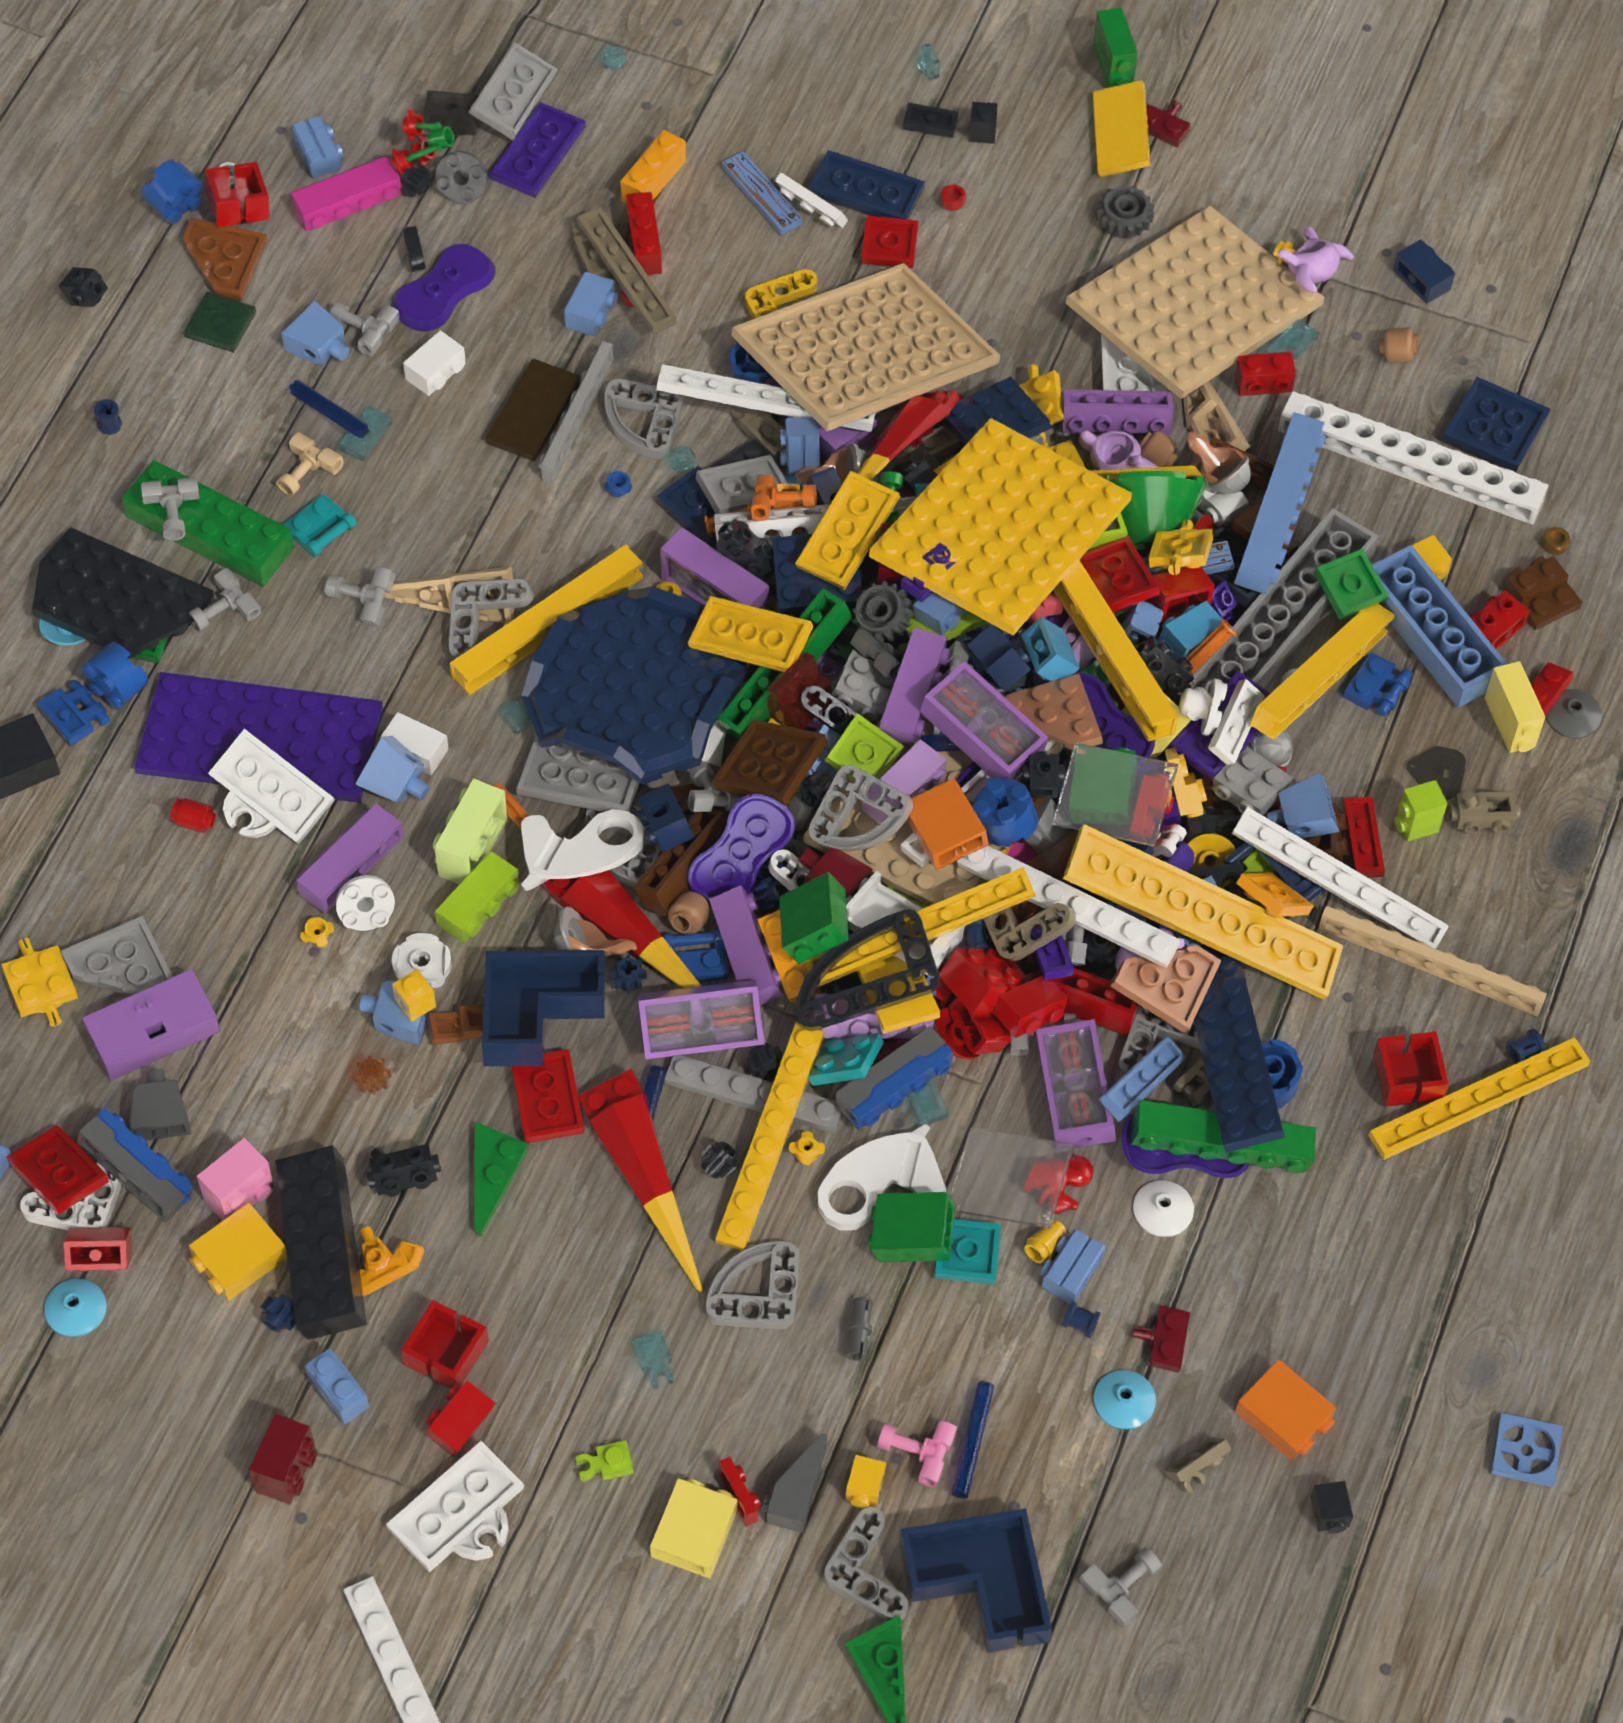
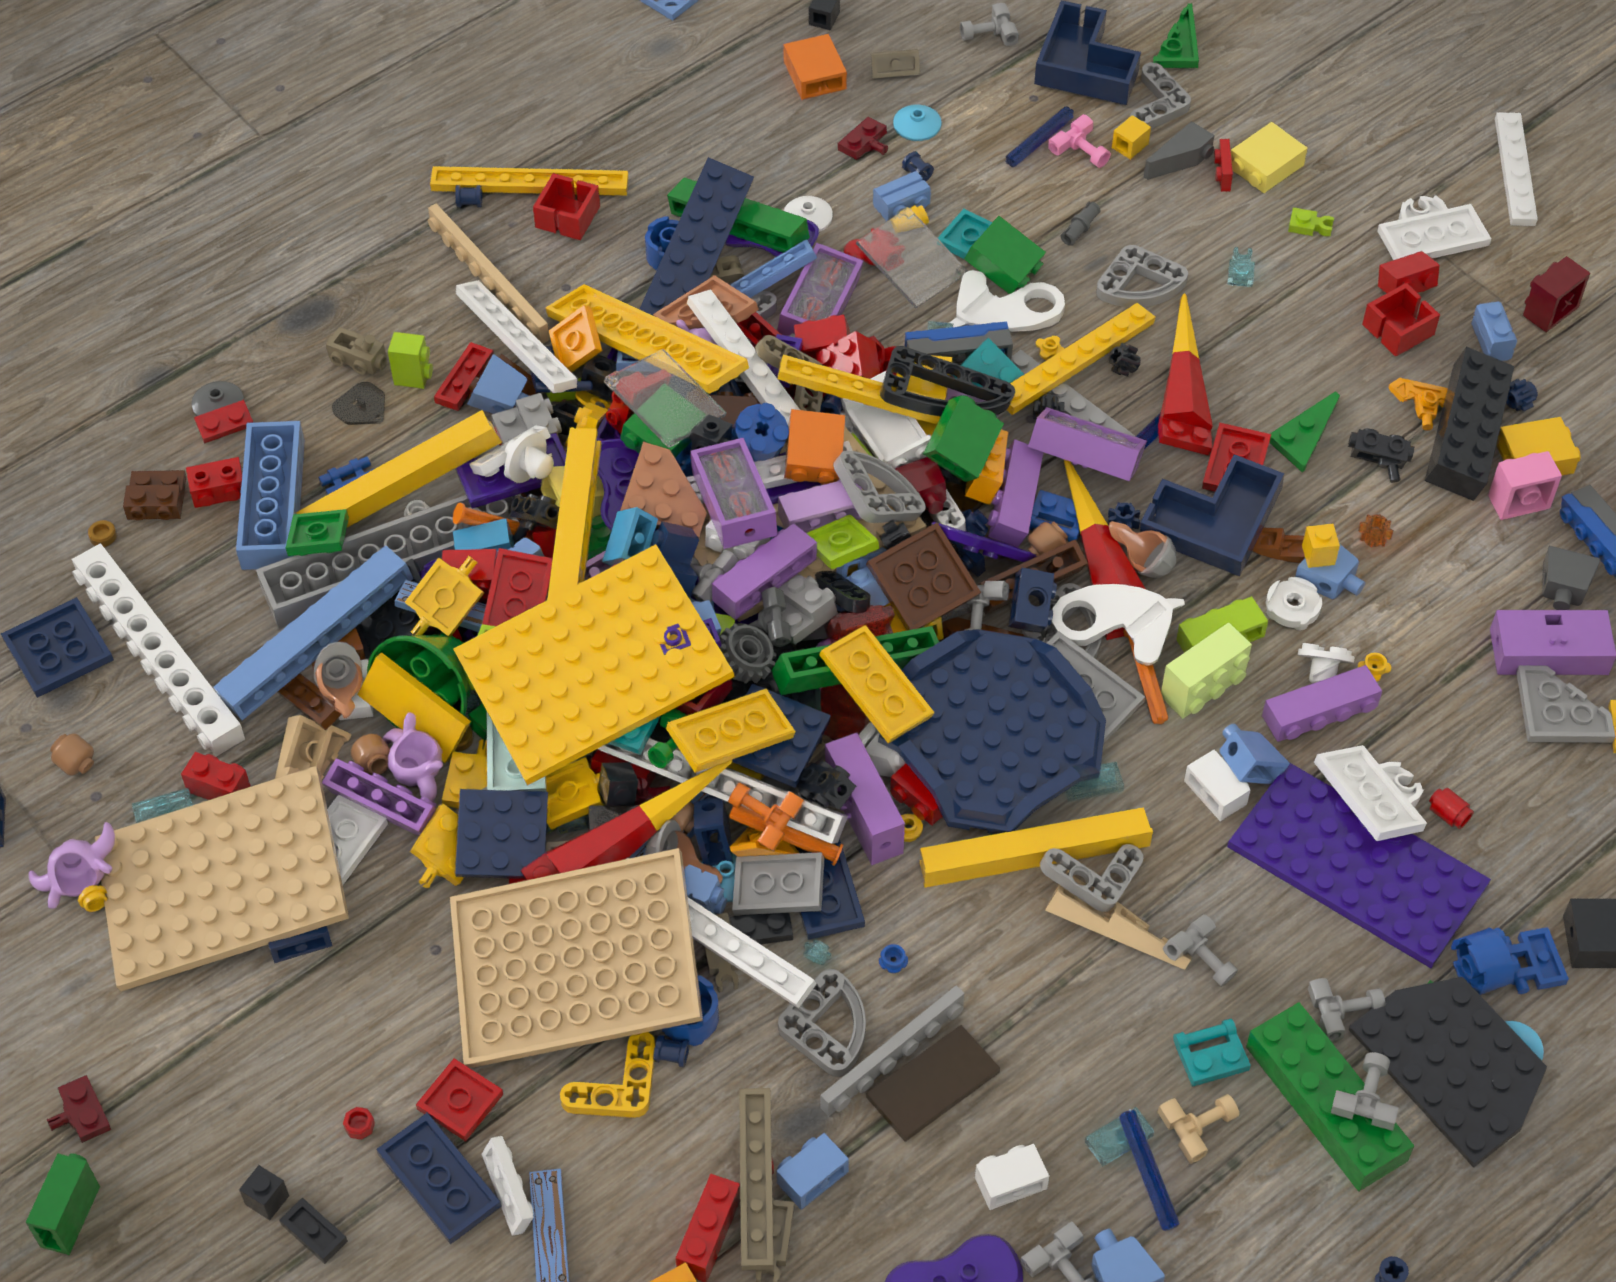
camera: 150 degrees left, 5 degrees down
(1121, 128) = (130, 1116): yellow tile -> none
(1125, 212) = (205, 1031): dark grey gear -> none
(1434, 556) = (222, 556): yellow brick -> none
(1514, 707) = (268, 394): light yellow brick -> none

